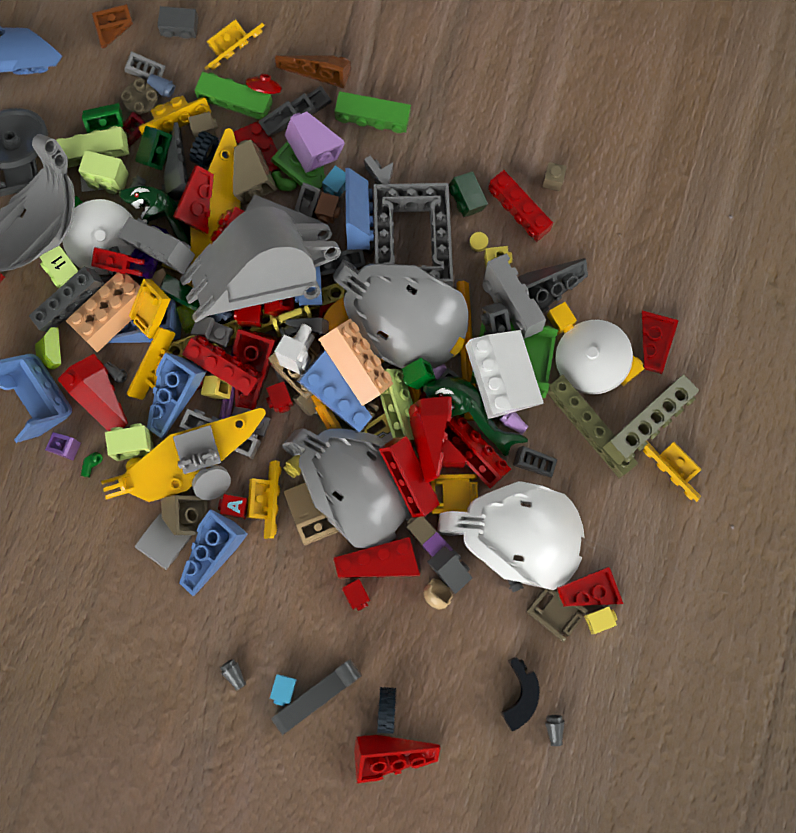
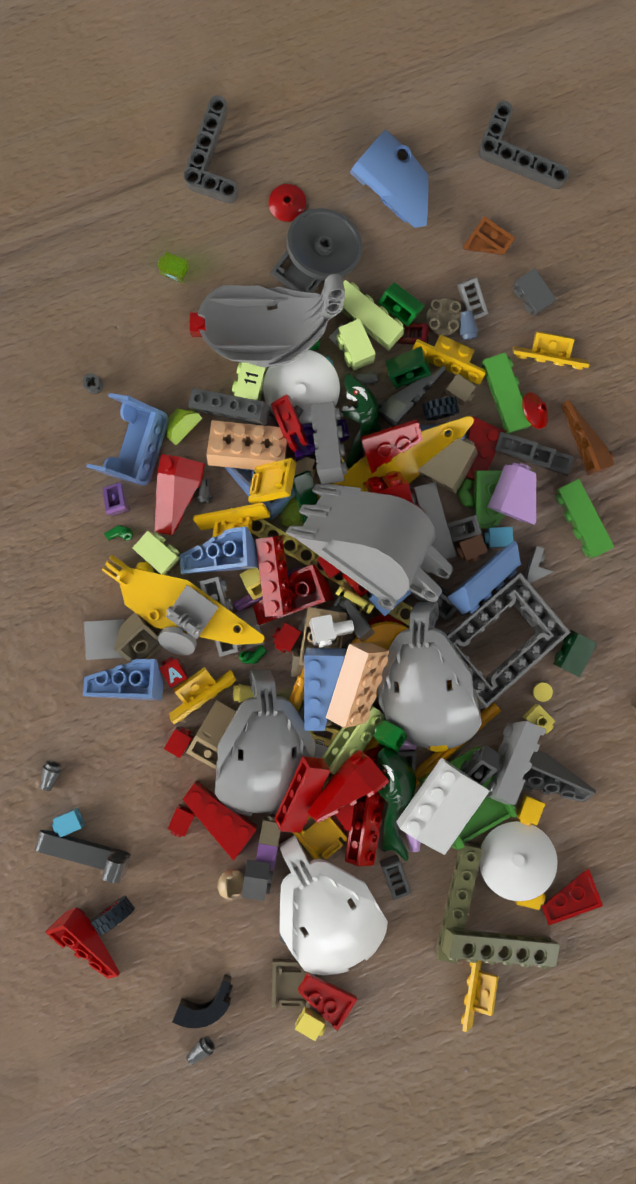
camera: 50 degrees right, 10 degrees up
(212, 331) = (296, 550): light grey slope -> none
(274, 437) = (252, 657): none -> green arm
(291, 546) = (179, 741): none -> red brick
(520, 205) = (599, 703): red brick -> none

